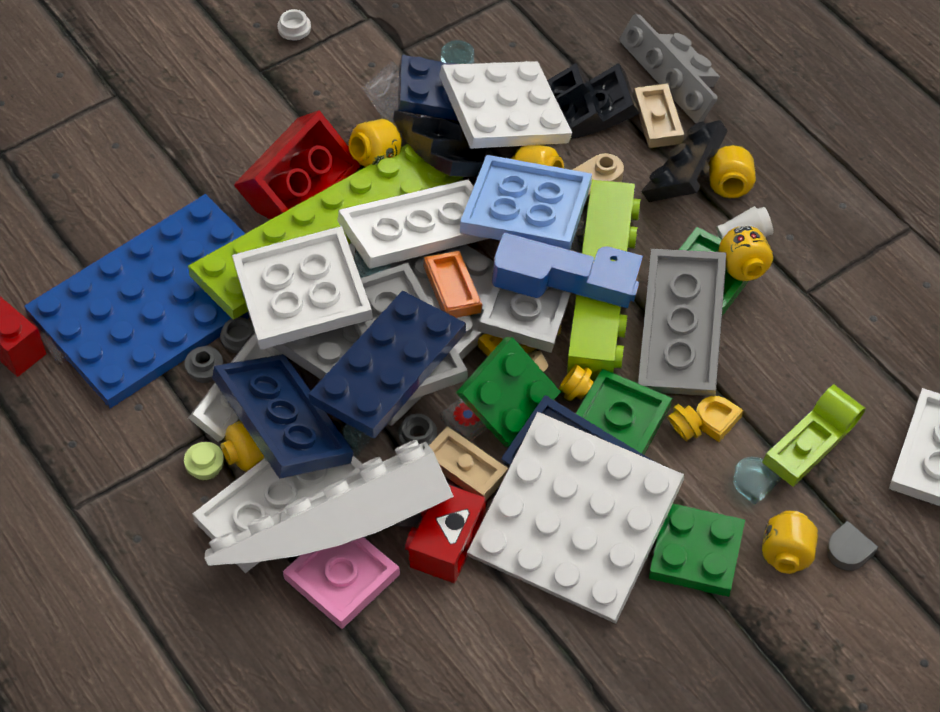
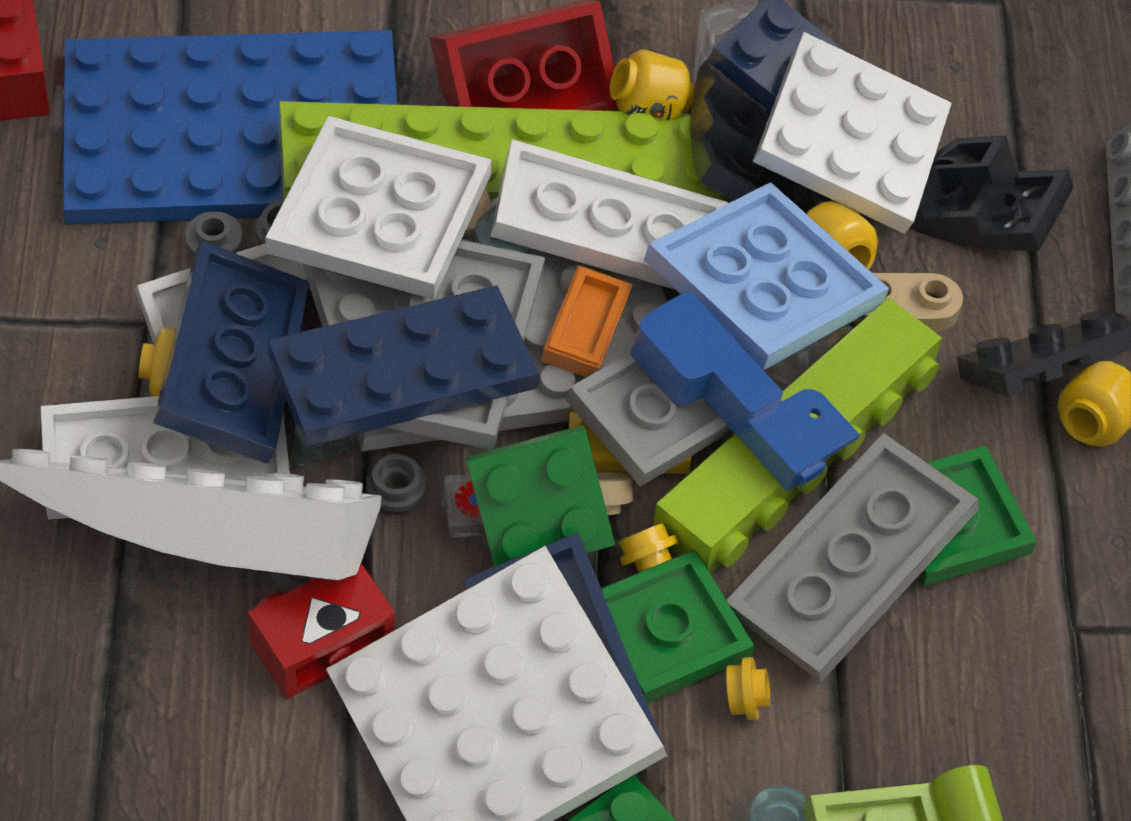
camera: 30 degrees right, 0 degrees up
(204, 460) = (114, 353): yellowish green plate -> none
(342, 578) = (151, 600): bright pink plate -> none
(457, 52) = (866, 38): clear light blue tile -> none
(467, 464) = (417, 556): tan plate -> none
(658, 115) = (1066, 271): tan plate -> none
(718, 416) = (802, 710): yellow tile -> none
(746, 253) = (1013, 515): yellow head -> none
(752, 217) = (1058, 489): white cone -> none

